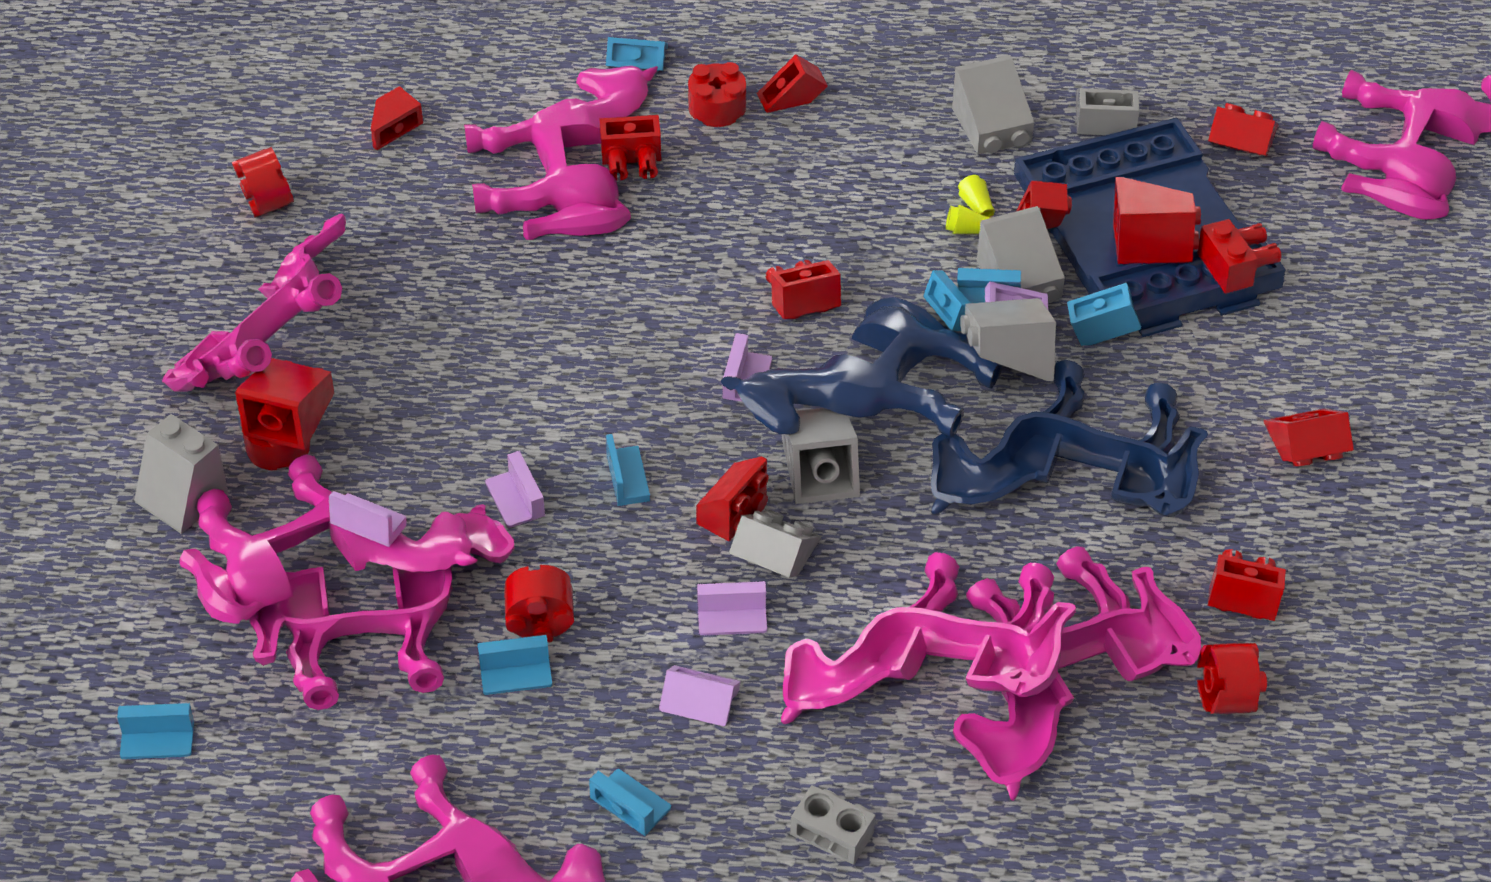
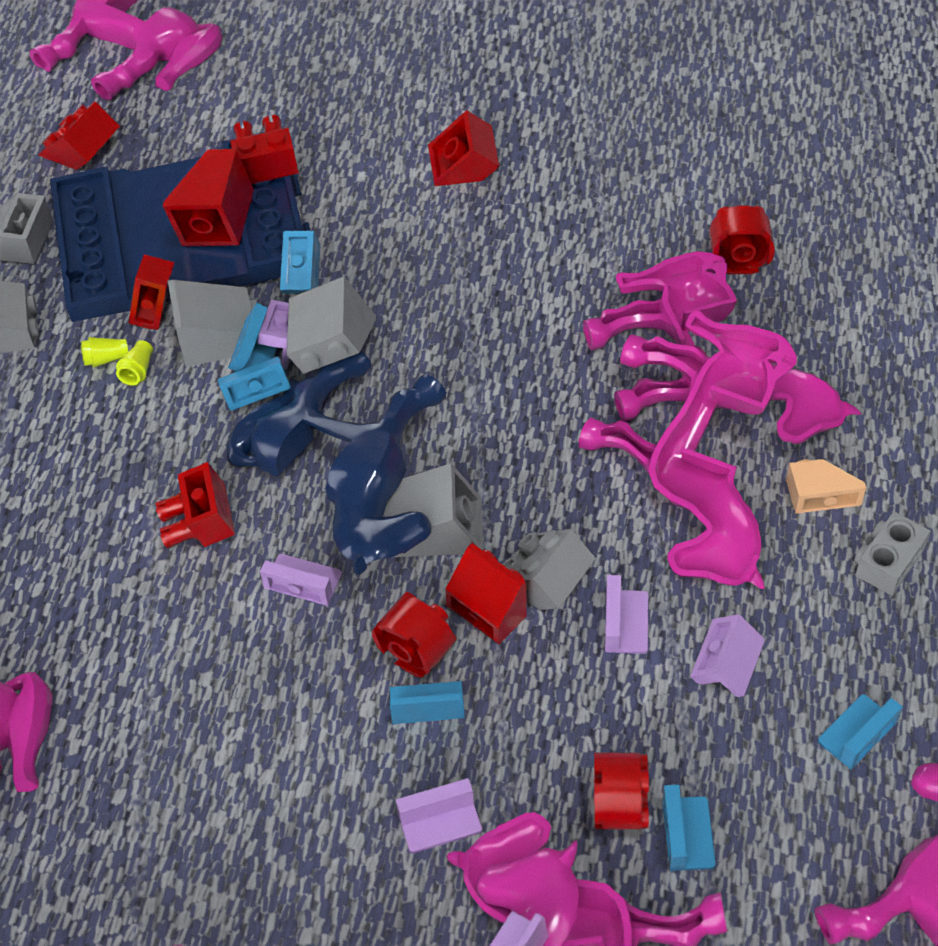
camera: 80 degrees left, 5 degrees up
(682, 446) = (414, 634): none -> red brick
(907, 760) = (822, 486): none -> light nougat slope
(1034, 441) = (498, 269): dark blue animal -> none
(1246, 586) = (635, 216): red brick -> none

